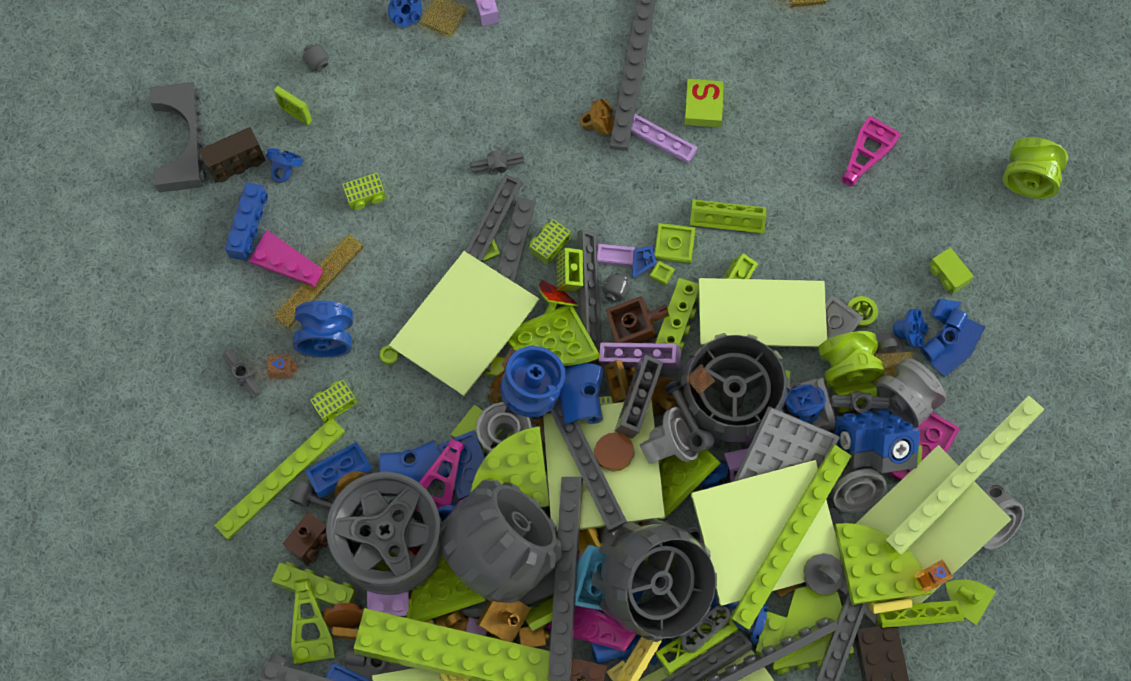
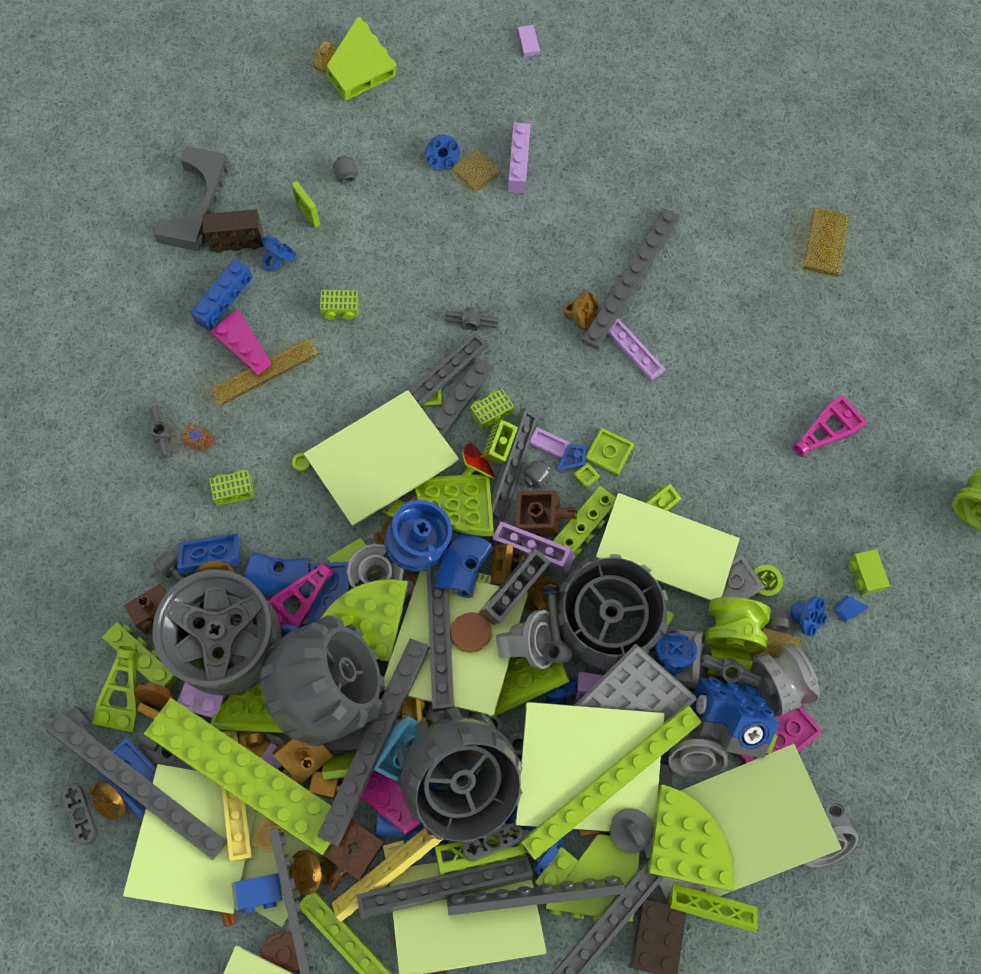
camera: 15 degrees right, 0 degrees up
(279, 479) = (153, 542): lime plate -> none
(323, 329) = (247, 416): blue piece -> none
(700, 379) = (577, 592): clear orange brick -> none
(704, 103) = (686, 330): lime slope -> none
(728, 216) = (670, 445): lime fence -> none
(890, 605) = (686, 888): light yellow tile -> none
(934, 576) = (741, 876): clear orange brick -> none
(964, 336) = (858, 643): blue panel -> none
(964, 475) = (810, 784): yellowish green plate -> none
(971, 596) = (773, 908): lime shield -> none

